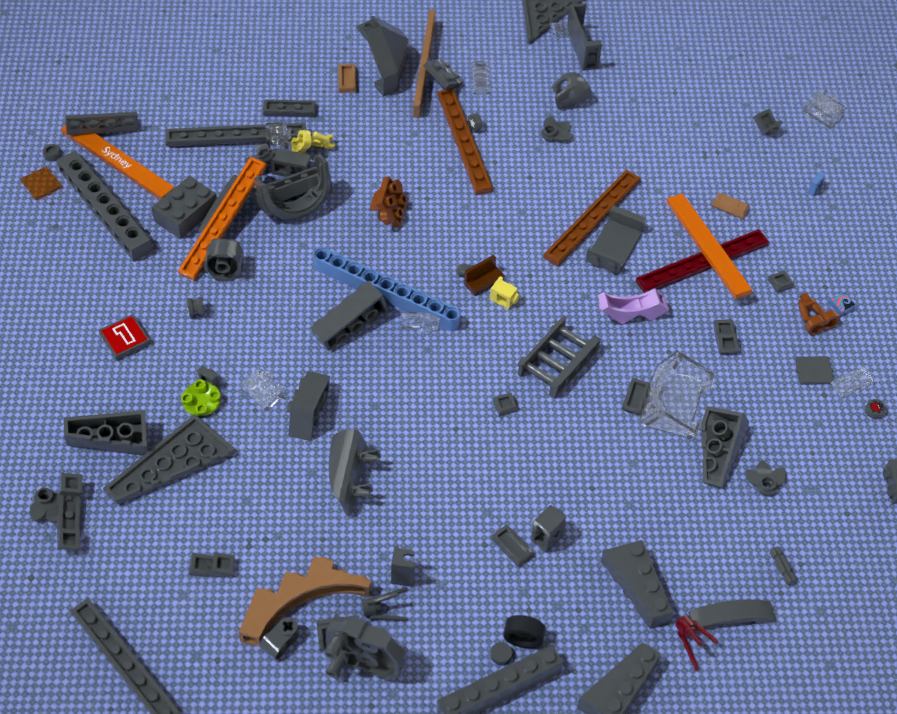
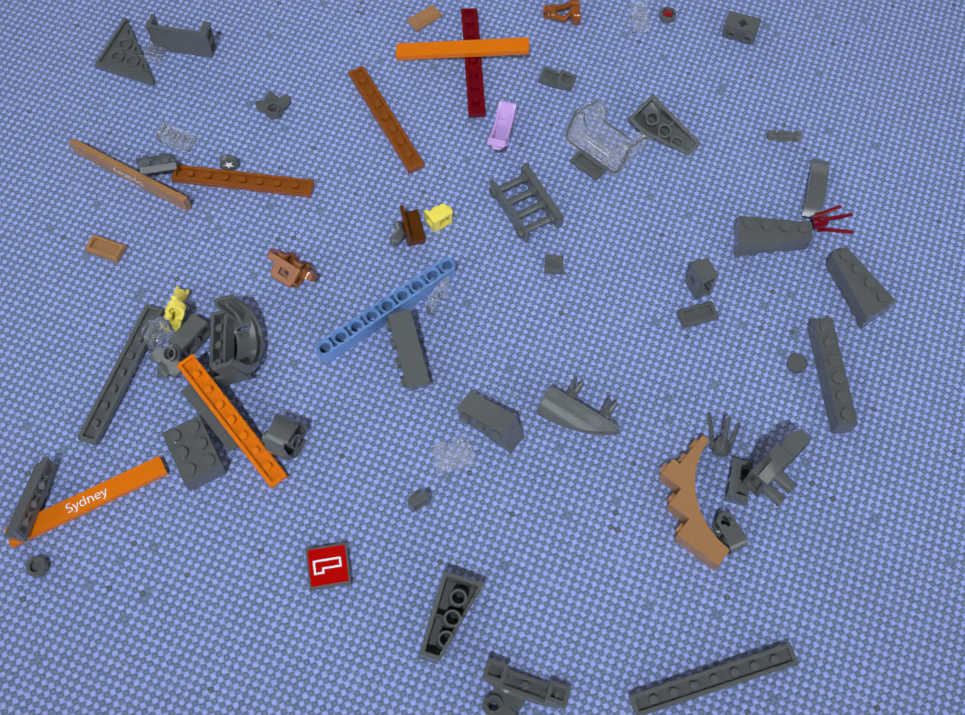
camera: 65 degrees left, 10 degrees up
(41, 183) = (74, 591): clear orange piece -> none
(105, 205) = (70, 544): dark grey brick -> none
(180, 453) = (495, 557): dark grey wing -> none
(195, 306) = (326, 484): dark grey wheel -> none
(201, 398) = (438, 516): lime dish -> none
(211, 566) = (628, 569): dark grey slope -> none
(289, 108) = (113, 313): dark grey tile -> none
(389, 50) = (99, 188): dark grey panel -> none
(401, 570) = (698, 405): dark grey hinge -> none
(524, 631) = (791, 335): black tyre -> none
(574, 93) = (241, 69): dark grey helmet -> none
(616, 240) = (420, 112): dark grey panel -> none
(764, 475) = (702, 112): dark grey plate -> none
(780, 281) = (519, 19): dark grey tile -> none
(814, 370) = (614, 37): dark grey piece -> none

